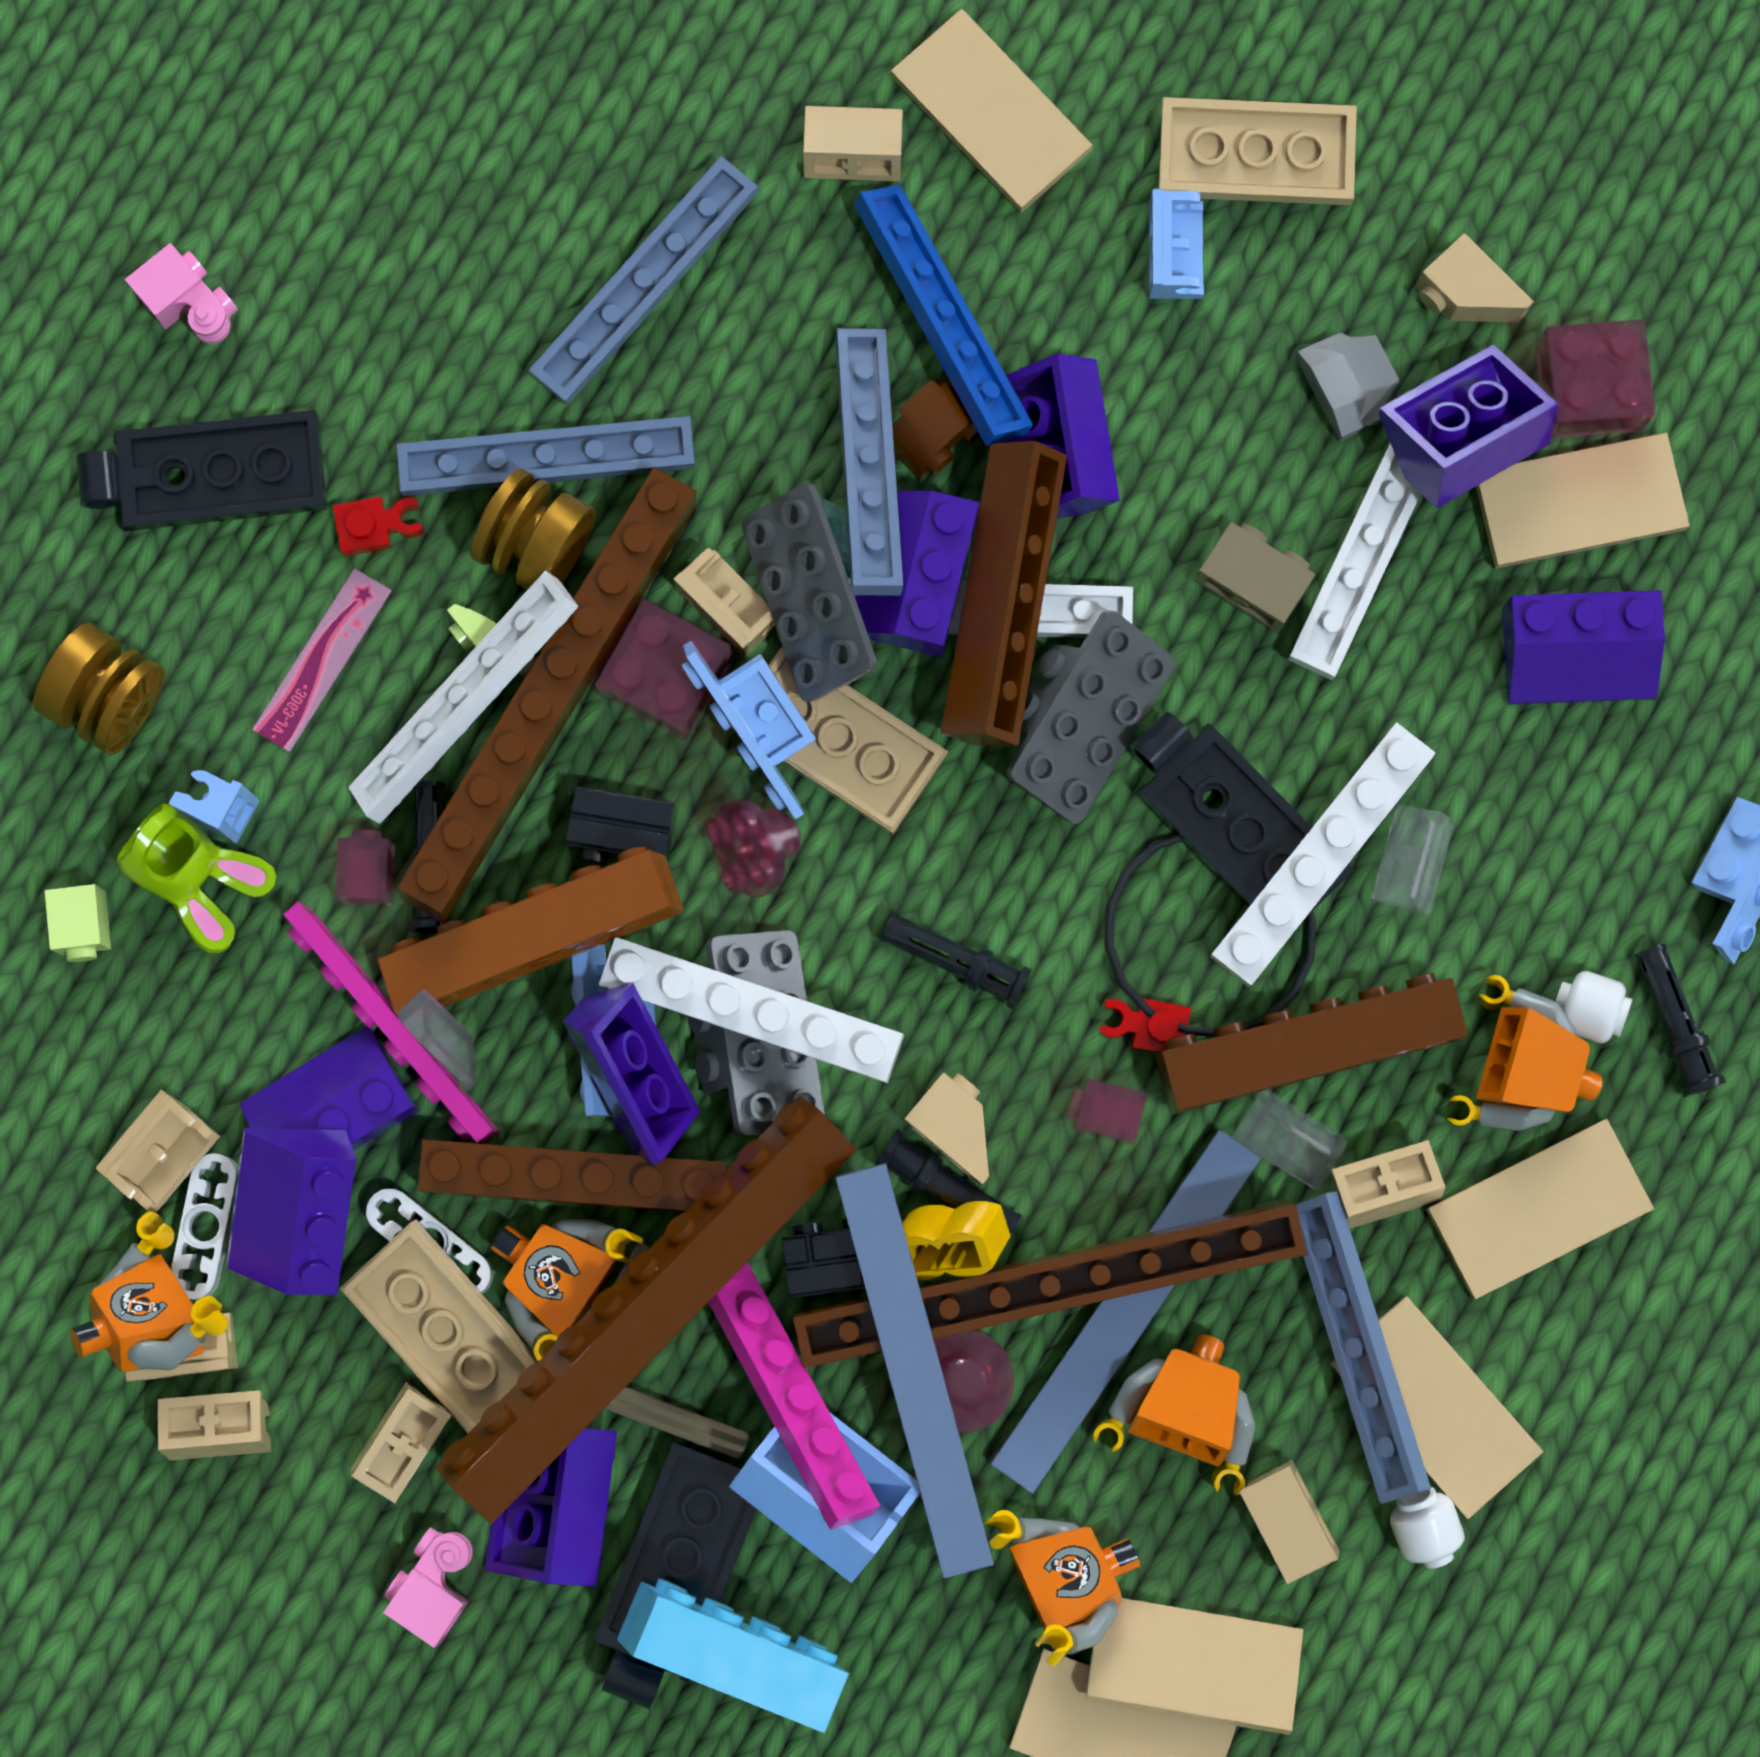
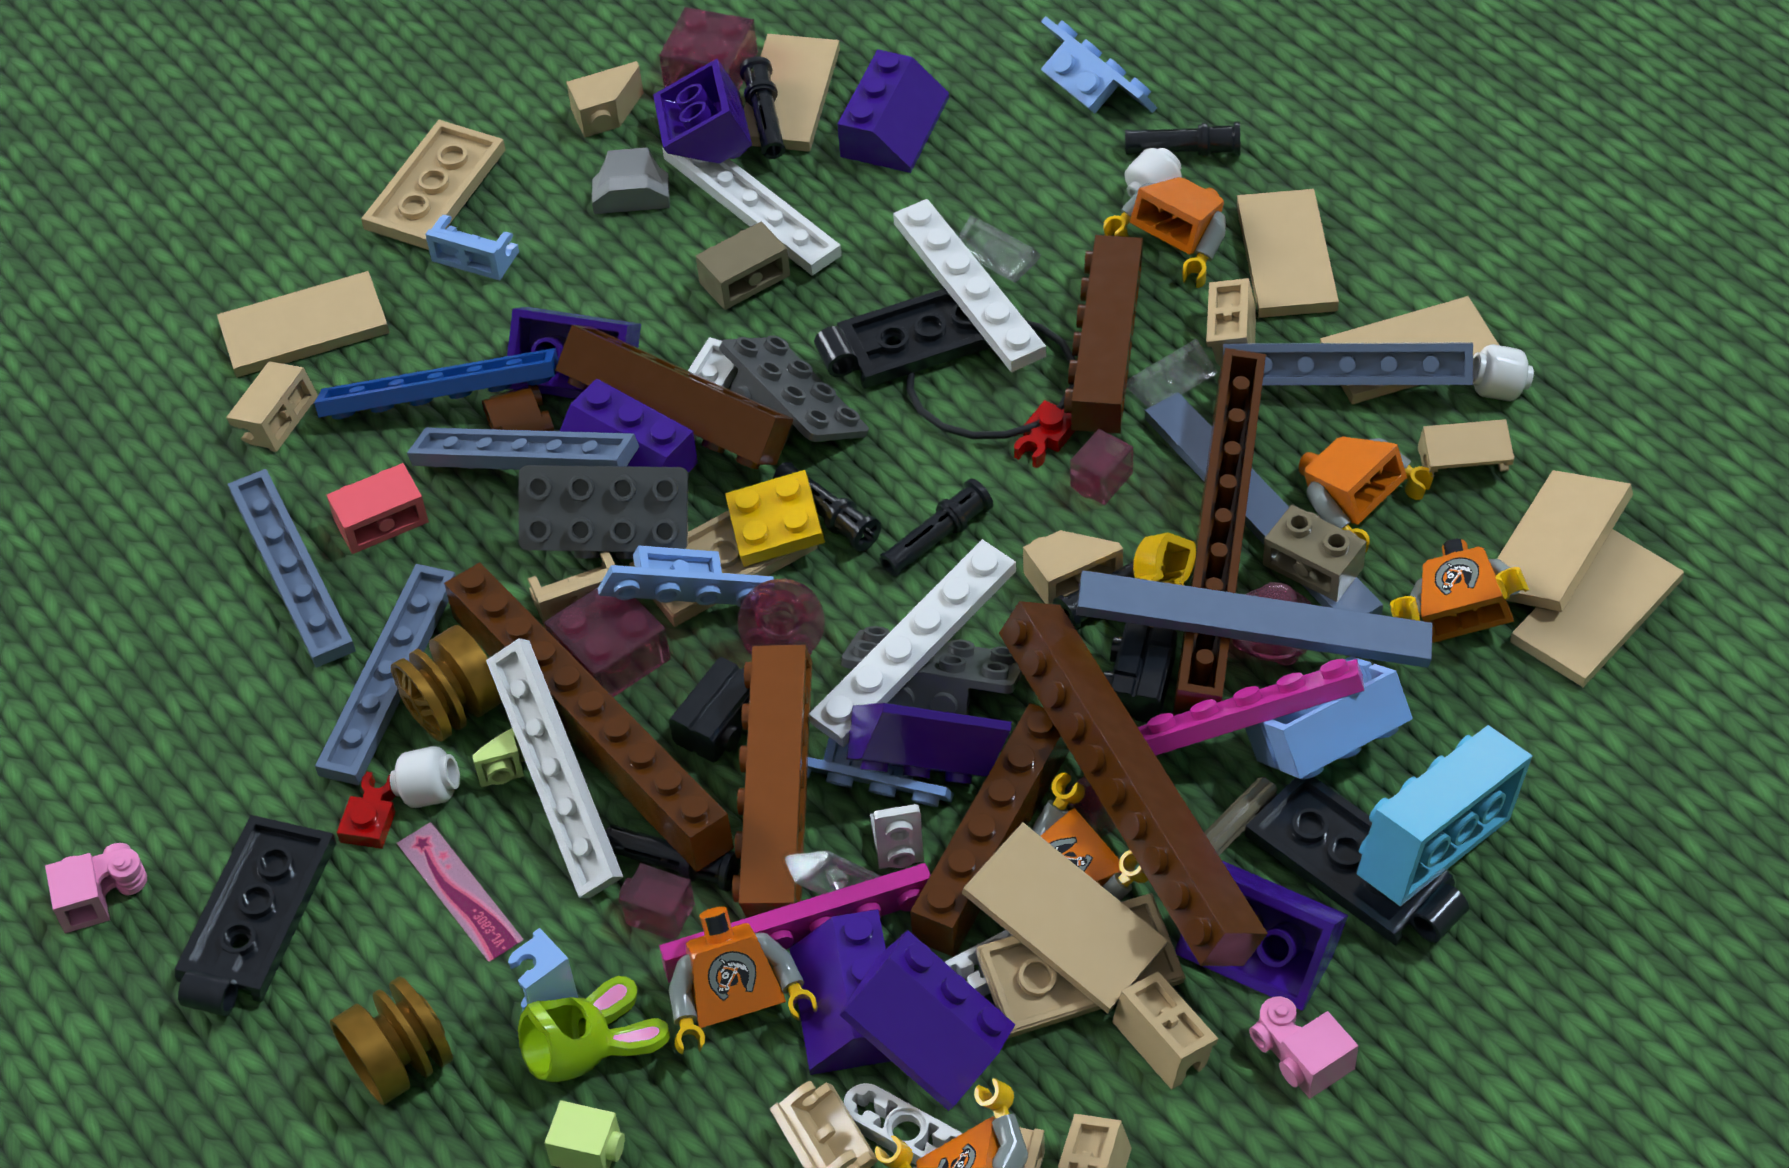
camera: 65 degrees left, 30 degrees down
(292, 988) = (730, 976): none -> torso
(426, 563) = (425, 777): none -> white head
(471, 1299) = (1065, 917): none -> tan tile
(534, 1080) = (898, 836): none -> white bracket
(753, 333) = (377, 508): none -> coral brick
(891, 778) = (774, 518): none -> yellow plate
(934, 844) = (840, 514): none -> black pin
(1061, 1399) = (1314, 552): none -> dark tan brick
(1540, 476) = (761, 95): none -> black pin

